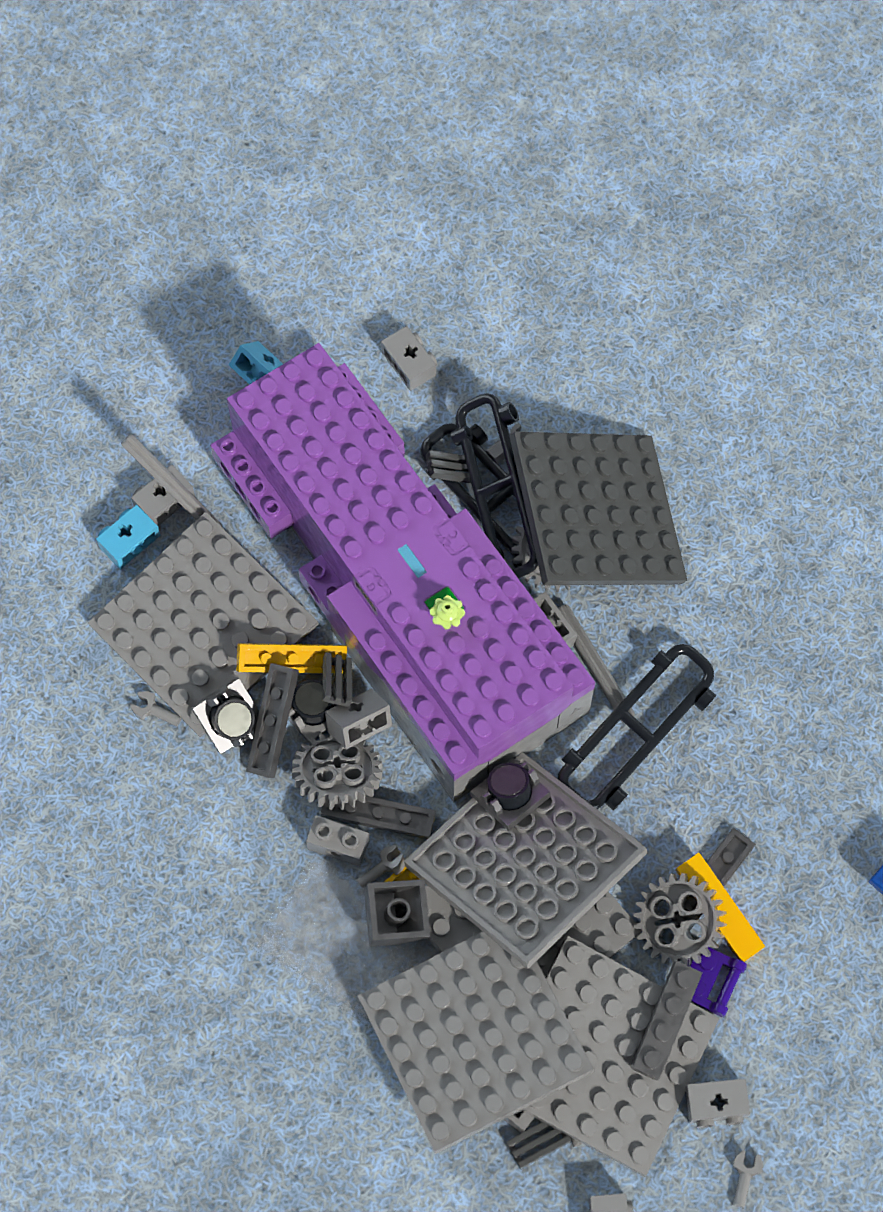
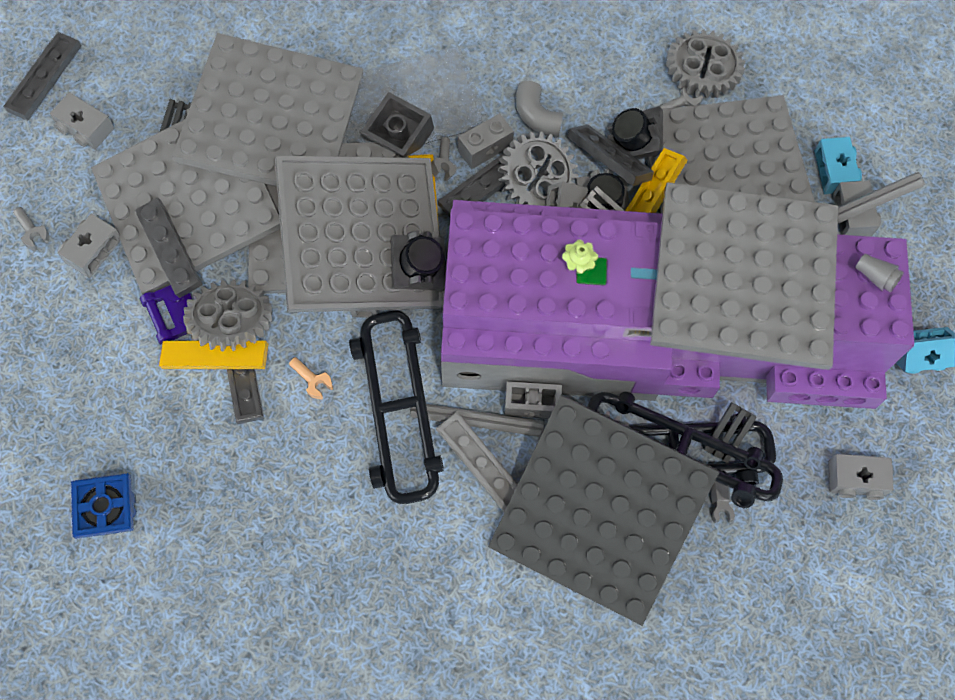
camera: 125 degrees right, 0 degrees up
(107, 734) = (723, 67): none -> light grey gear
(274, 821) = (532, 111): none -> light grey cylinder
(282, 390) = (881, 273): none -> light grey cone
(359, 488) = (746, 276): none -> light grey plate
(628, 633) = (478, 459): none -> light grey tile
(669, 817) = (312, 379): none -> light nougat bar

